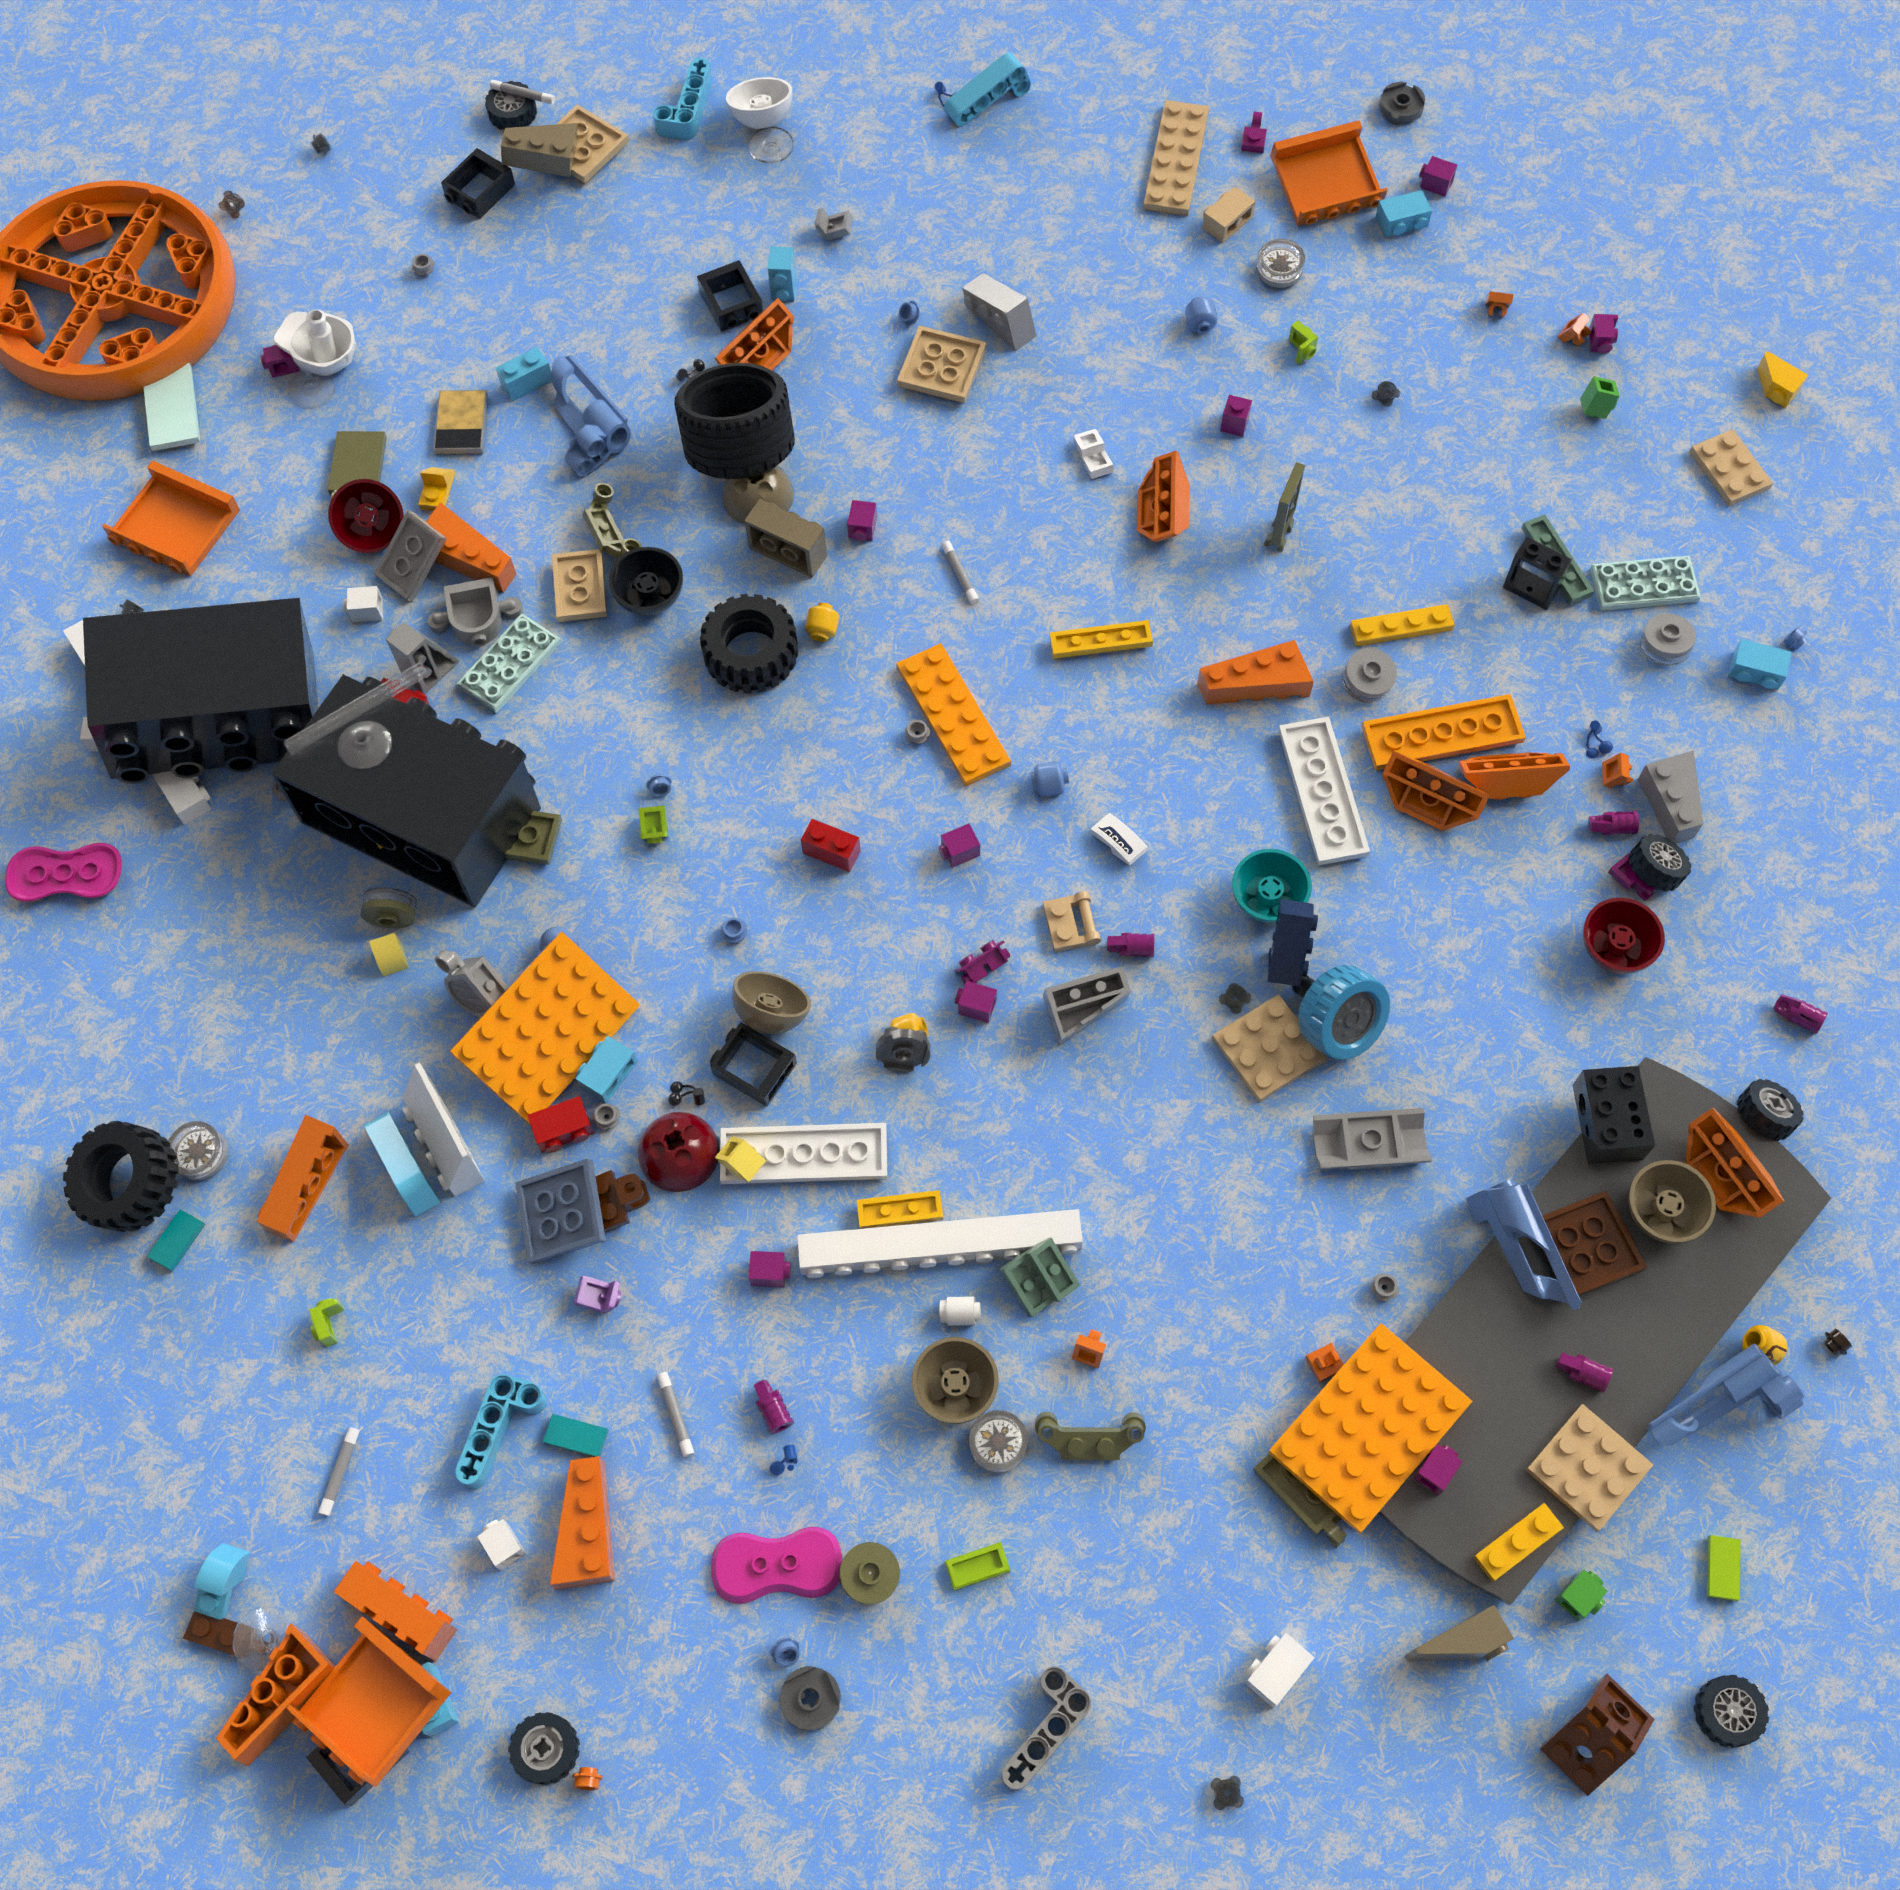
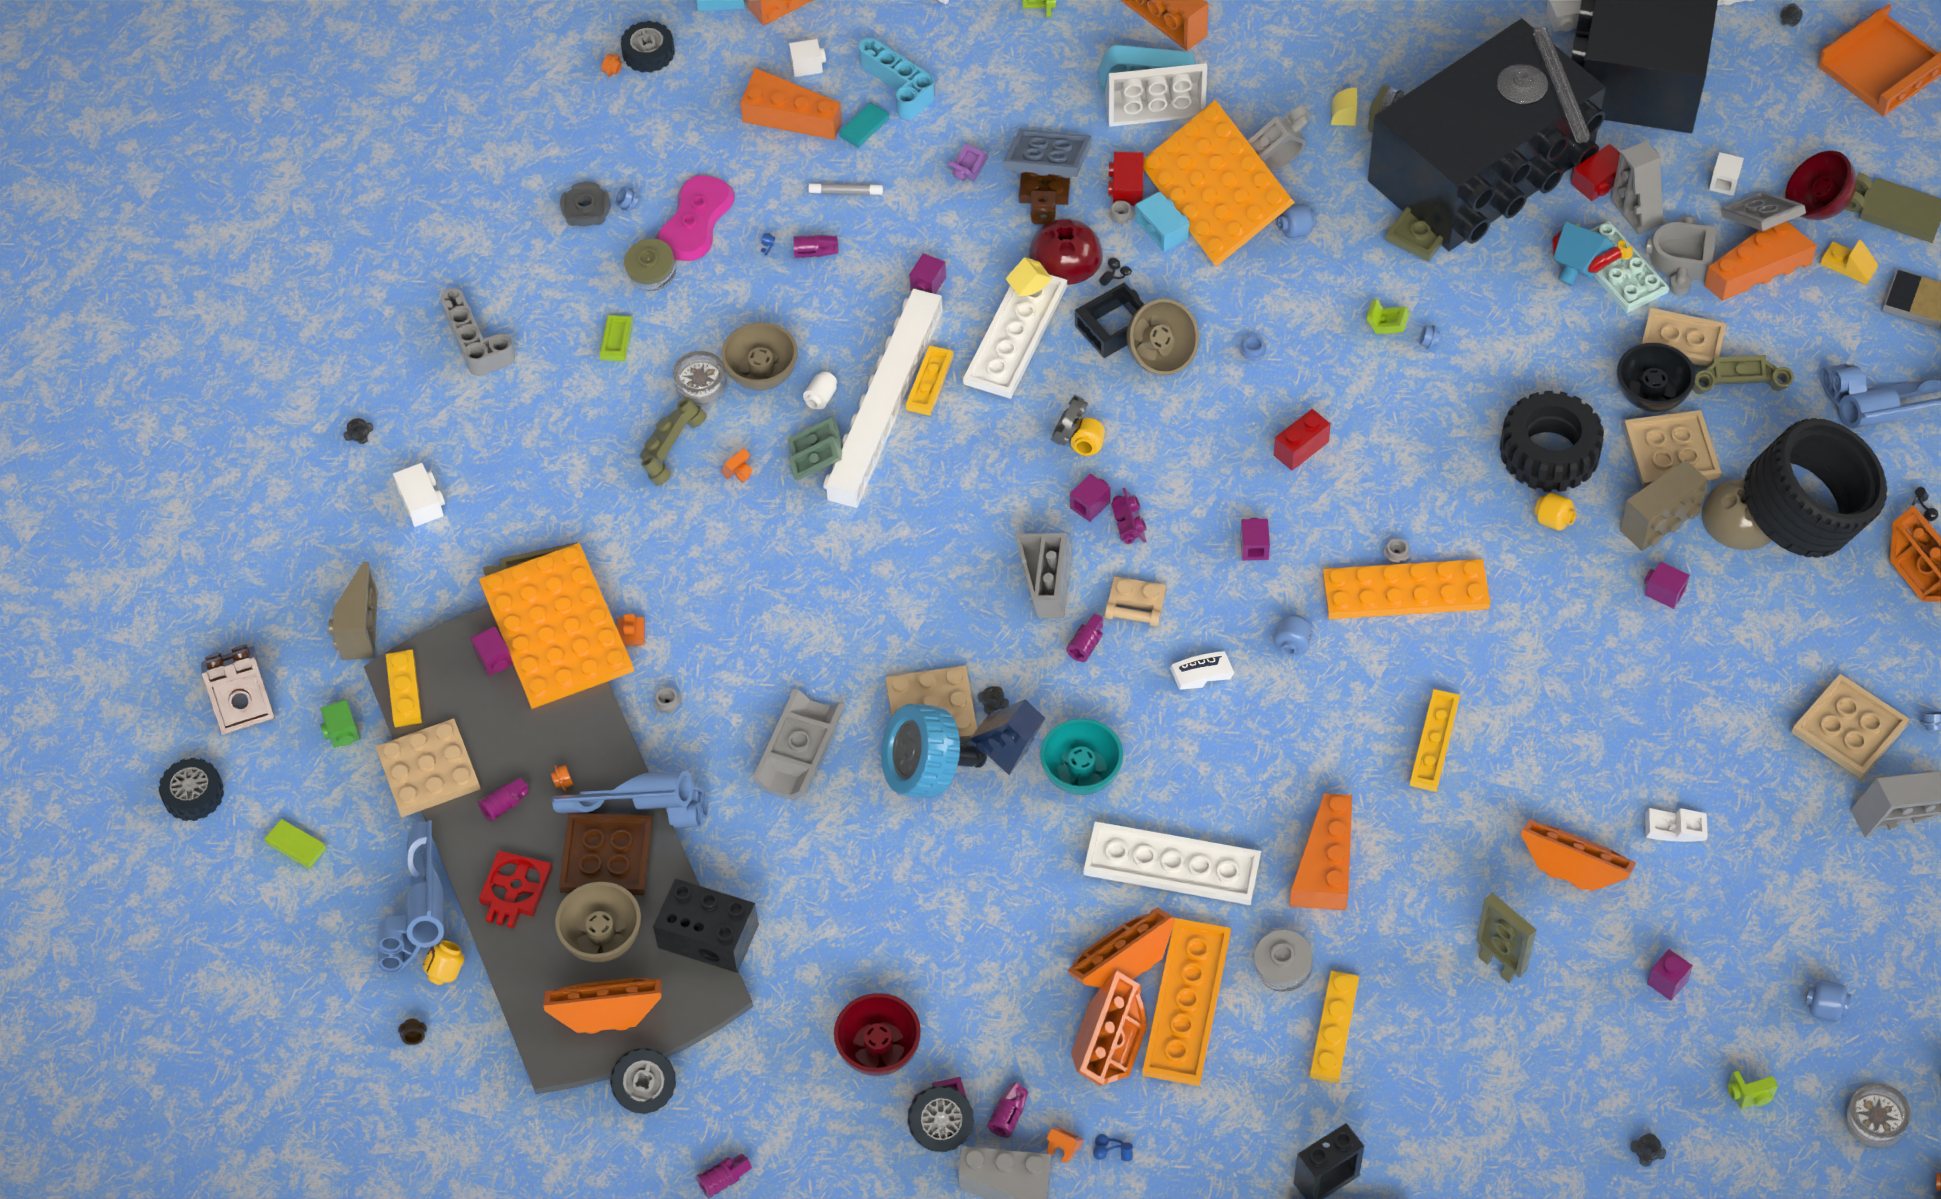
camera: 115 degrees right, 10 degrees down
(511, 686) = (1585, 252): none -> dark azure torso
(713, 558) = (1666, 441): none -> tan plate
(960, 572) = (1572, 652): light grey bar -> none
(1532, 1328) = (561, 777): none -> orange plate
(1684, 1311) = (509, 906): none -> red piece

